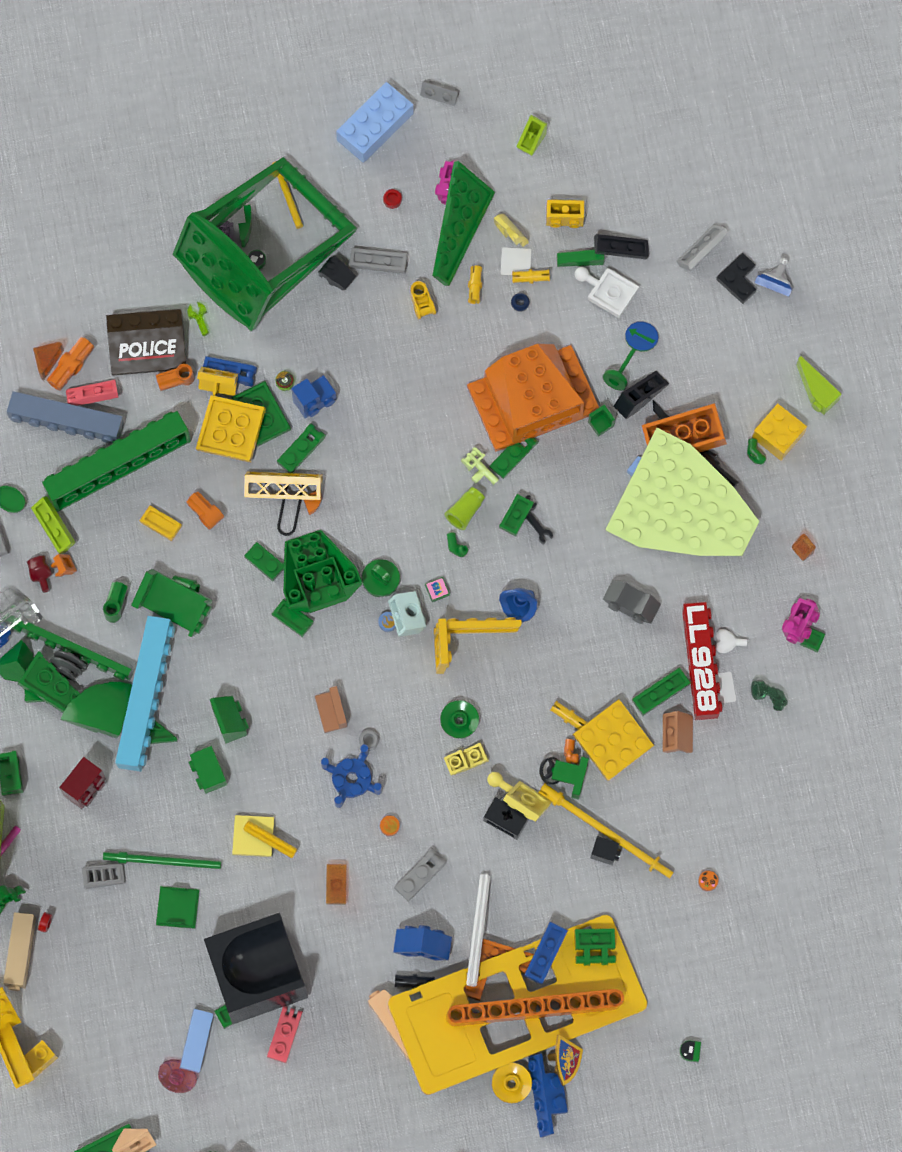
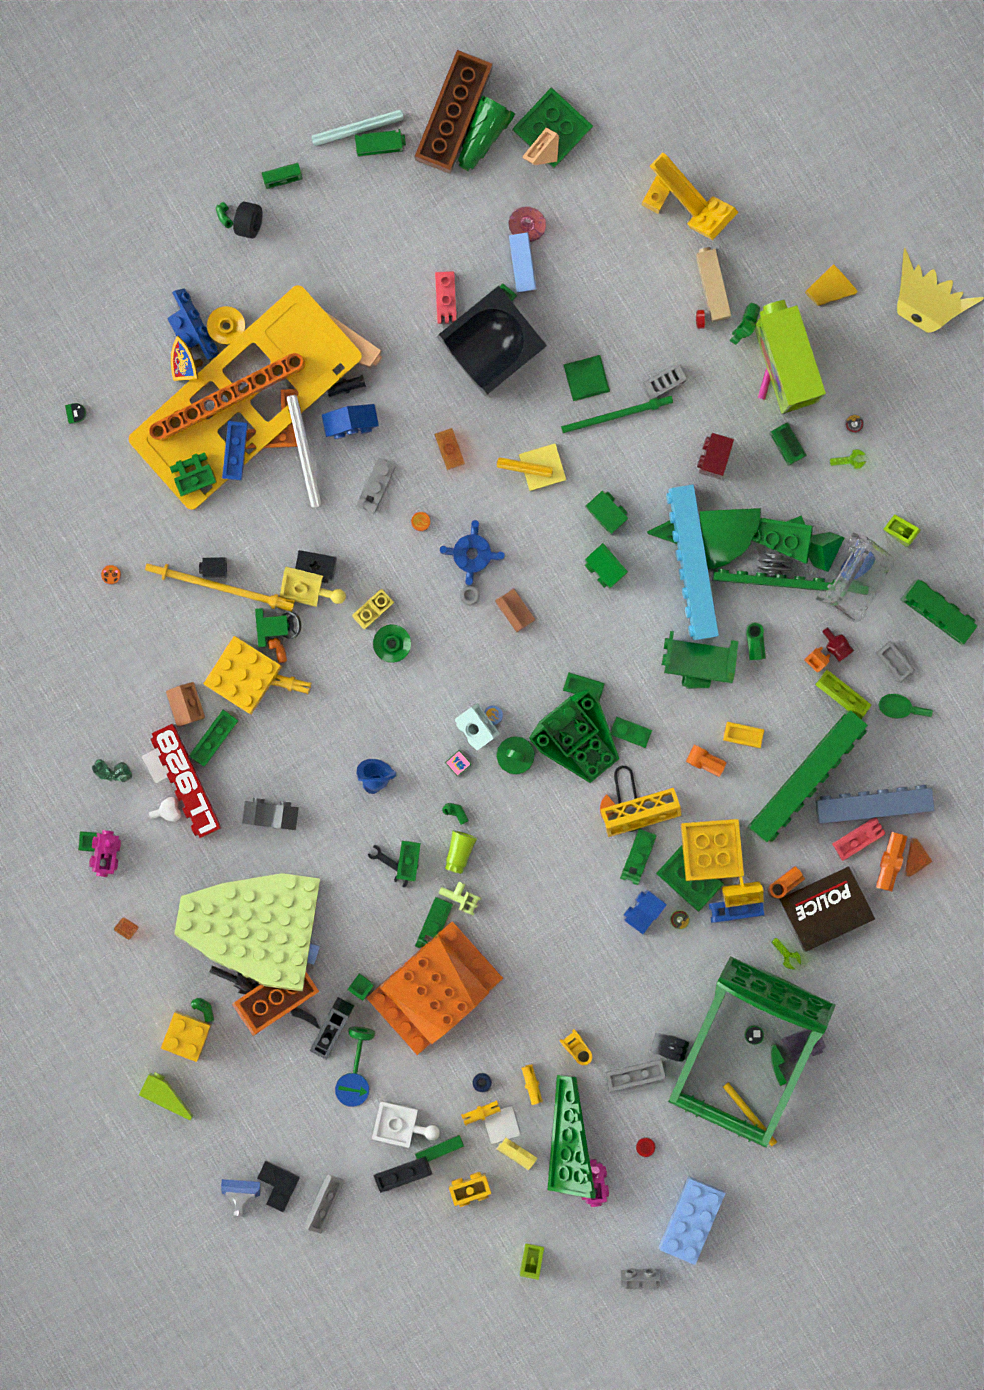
camera: 160 degrees right, 15 degrees up
(471, 625) = (433, 711): yellow bracket -> none

